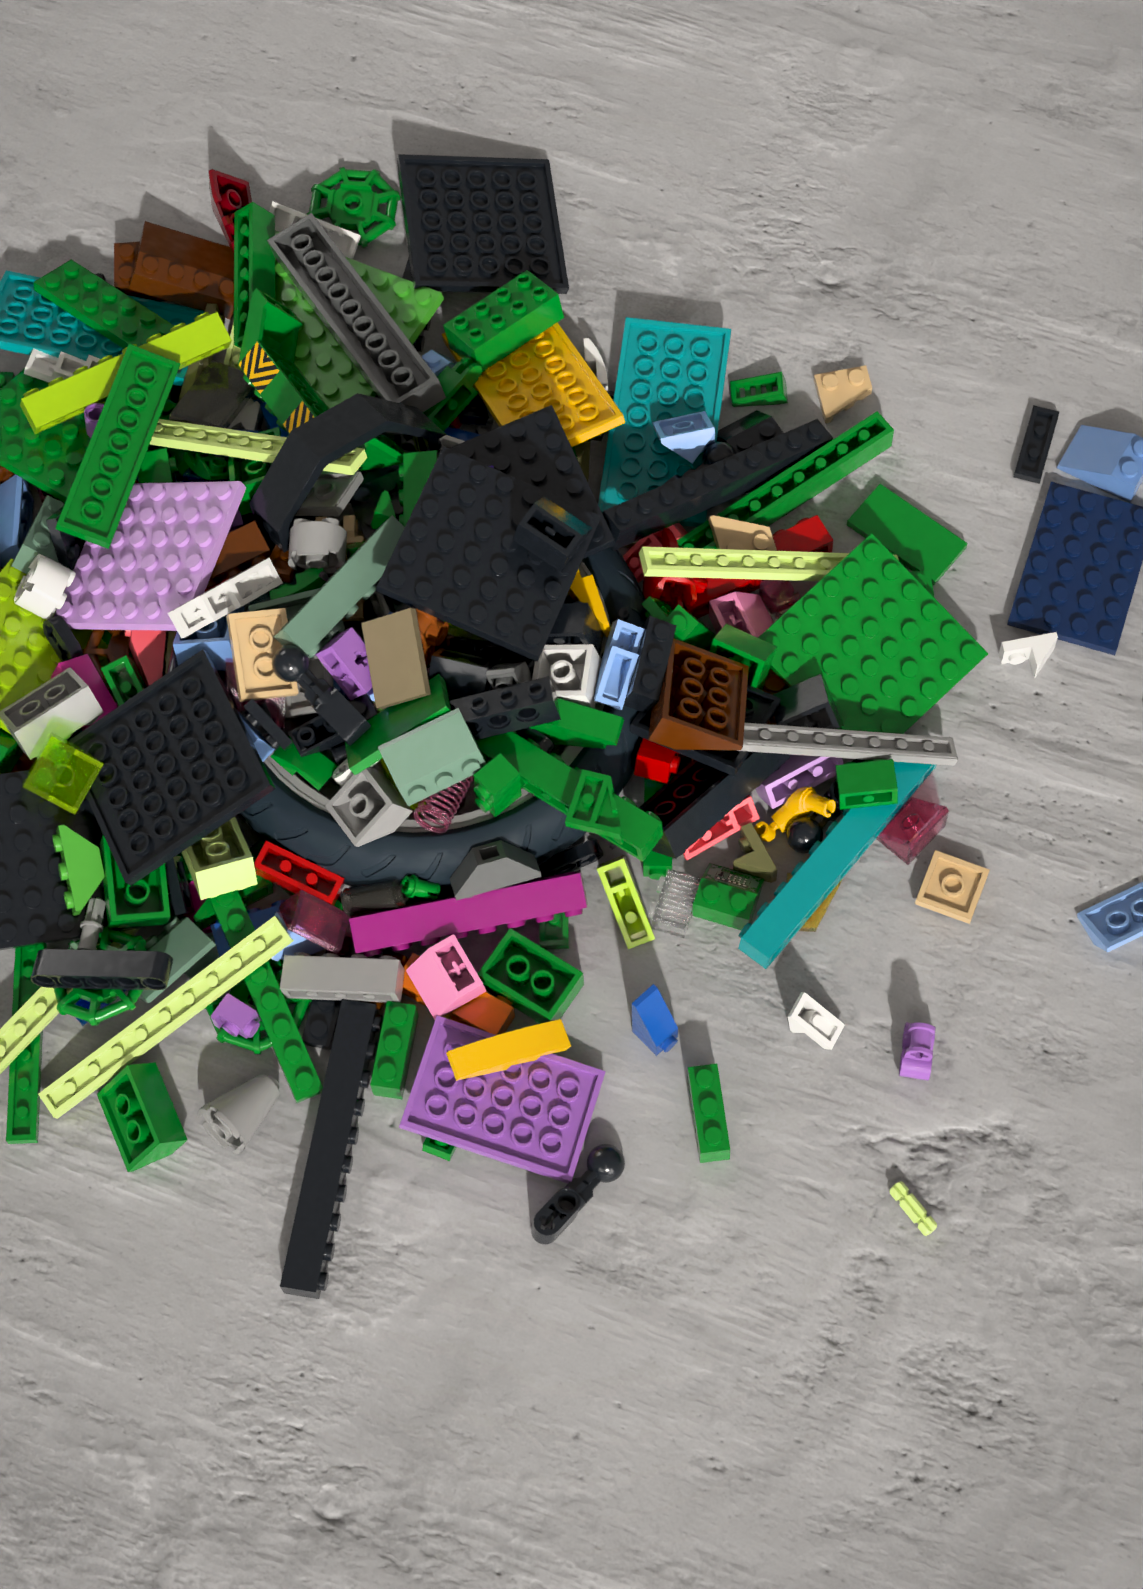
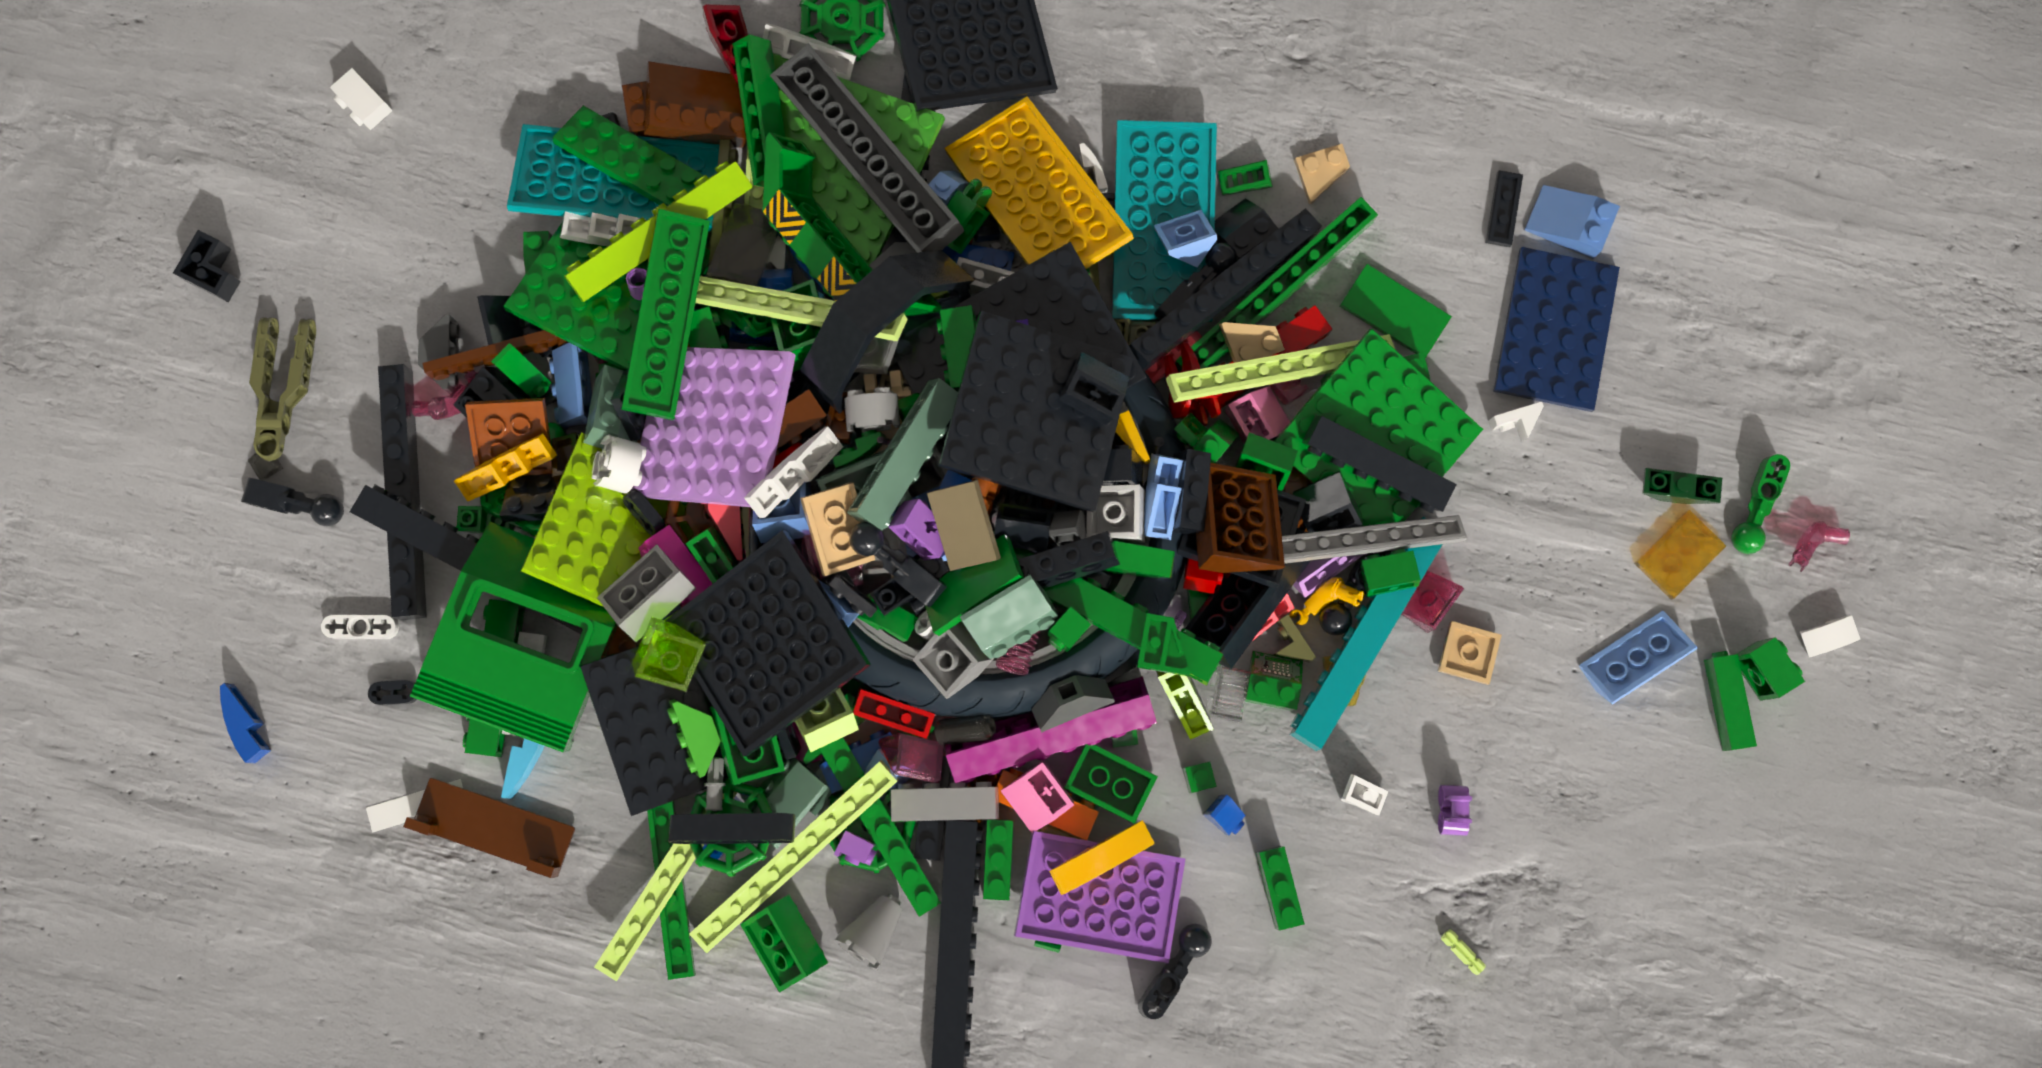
camera: 10 degrees left, 15 degrees up
(383, 510) = (928, 368): green slope -> none
(419, 888) = (1003, 720): green pin -> none
(504, 320) = (1004, 135): green brick -> none
(630, 984) = (1199, 777): none -> green brick
(866, 671) = (1379, 464): none -> black brick

